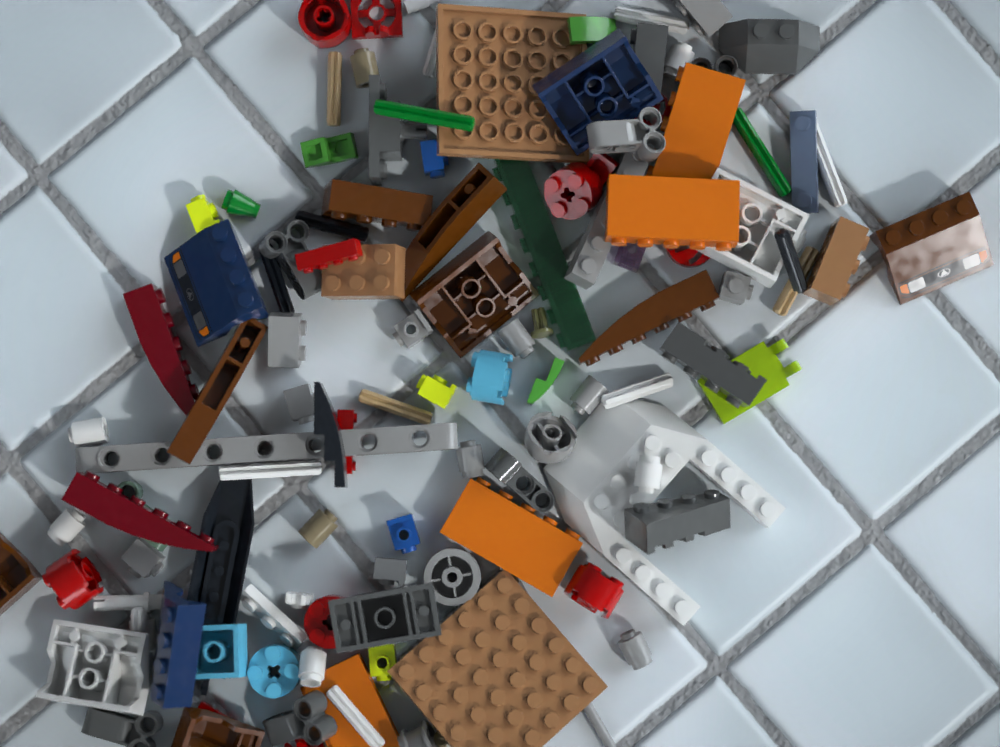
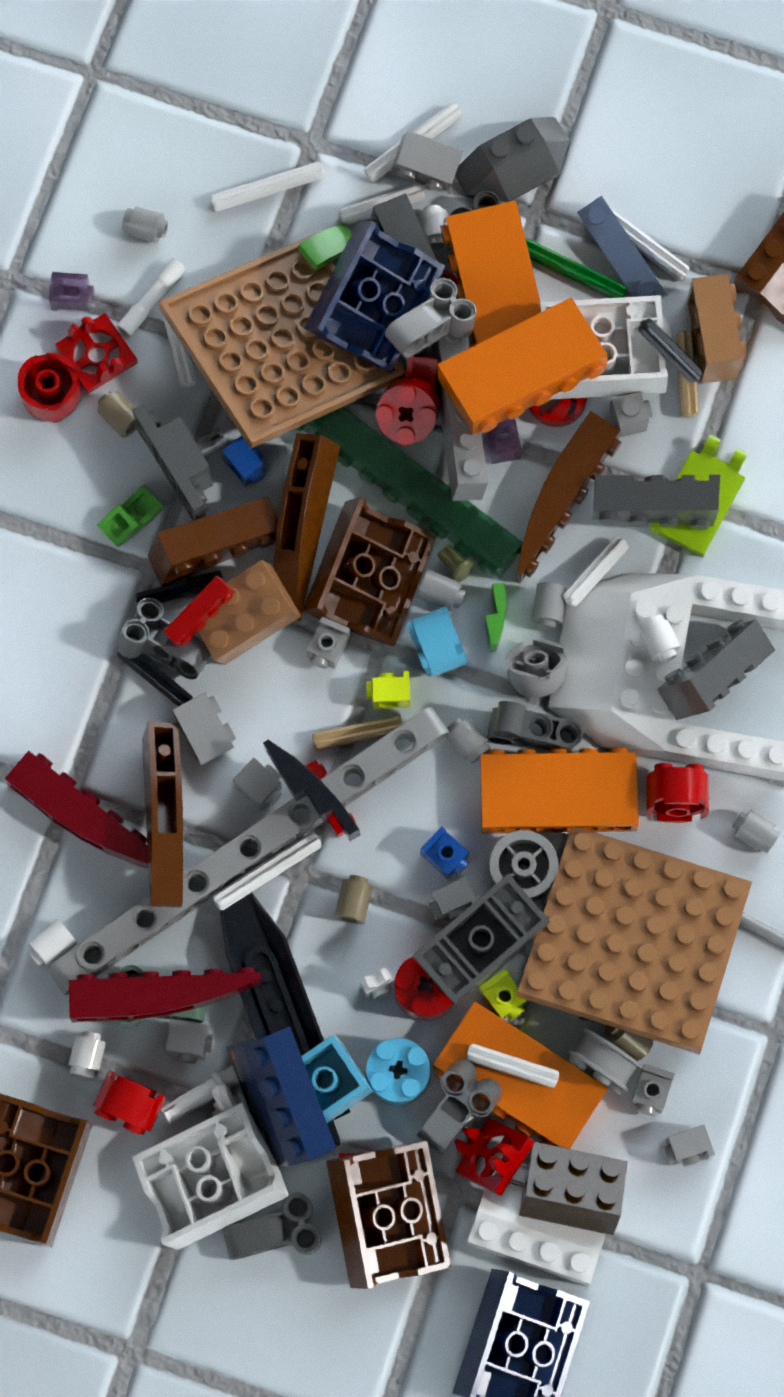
camera: 30 degrees left, 10 degrees down
(202, 213) = (40, 654): neon yellow brick -> none
(215, 283) = (94, 712): dark blue piece -> none
(240, 204) = (71, 622): green cone -> none
(272, 617) = (361, 1019): white plate -> none
(312, 666) = (436, 1039): white brick -> none
(334, 86) = (99, 452): tan axle -> none
(424, 115) = (214, 414): green axle -> none

